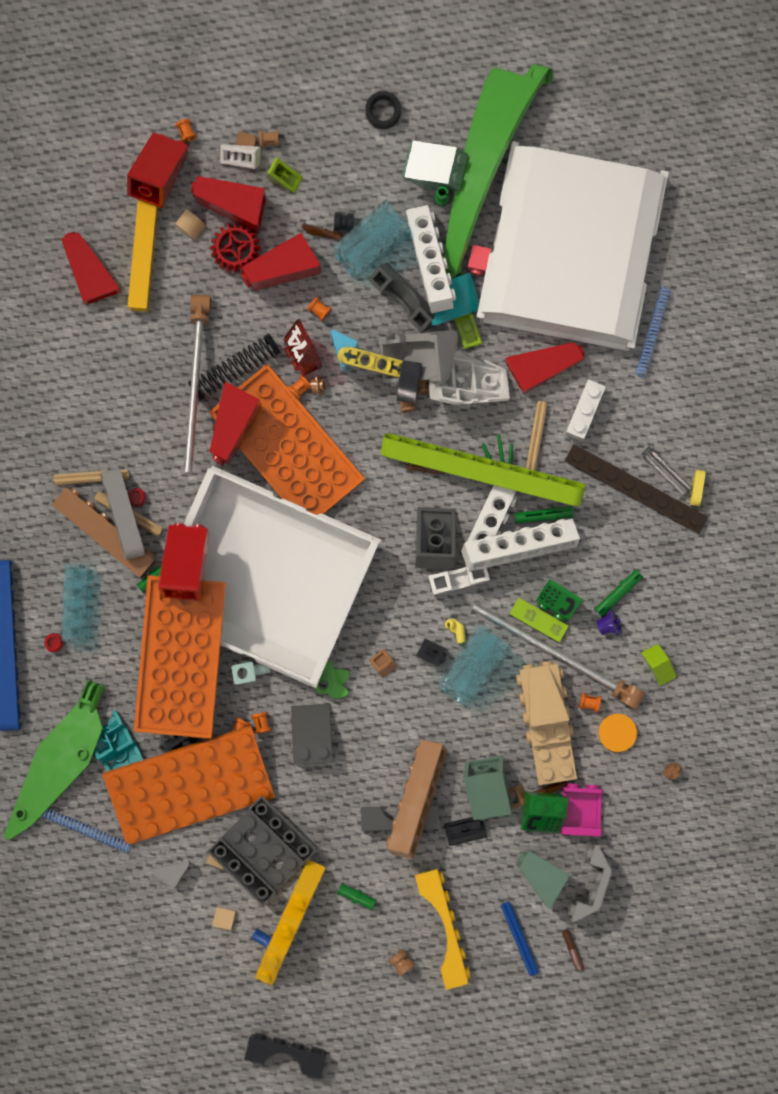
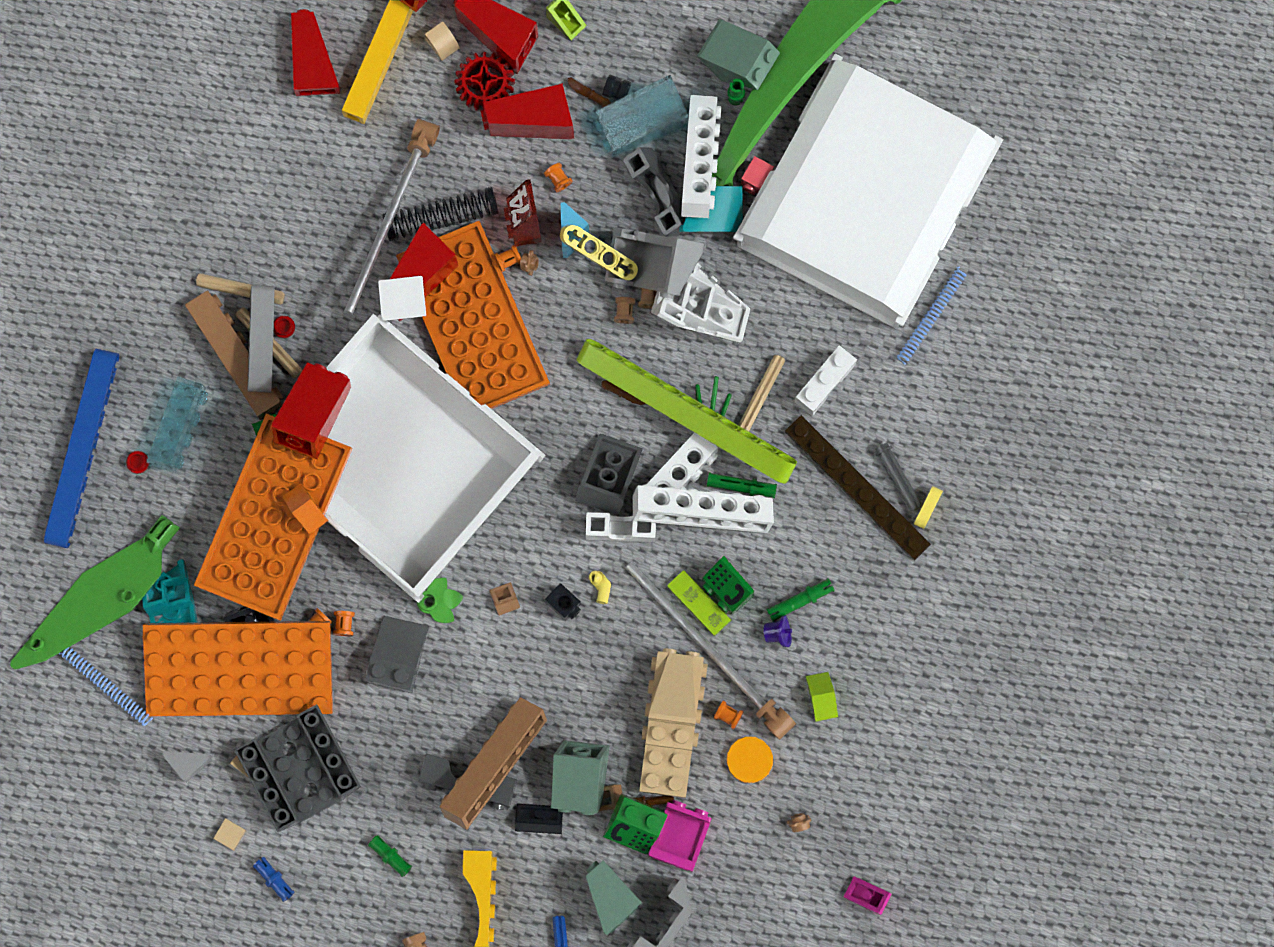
camera: 15 degrees right, 5 degrees down
(204, 643) = (305, 508): none -> orange slope
(227, 448) = (402, 298): none -> white sticker
(249, 671) = (348, 561): light aqua bracket -> none
(289, 922) = (301, 859): yellow arch -> none
(409, 381) = (632, 287): black slope -> none
(468, 331) = (720, 252): lime tile -> none
(473, 665) = (607, 630): clear light blue slope -> none
(541, 365) = (793, 315): red slope -> none
(744, 812) = (867, 895): none -> dark pink slope

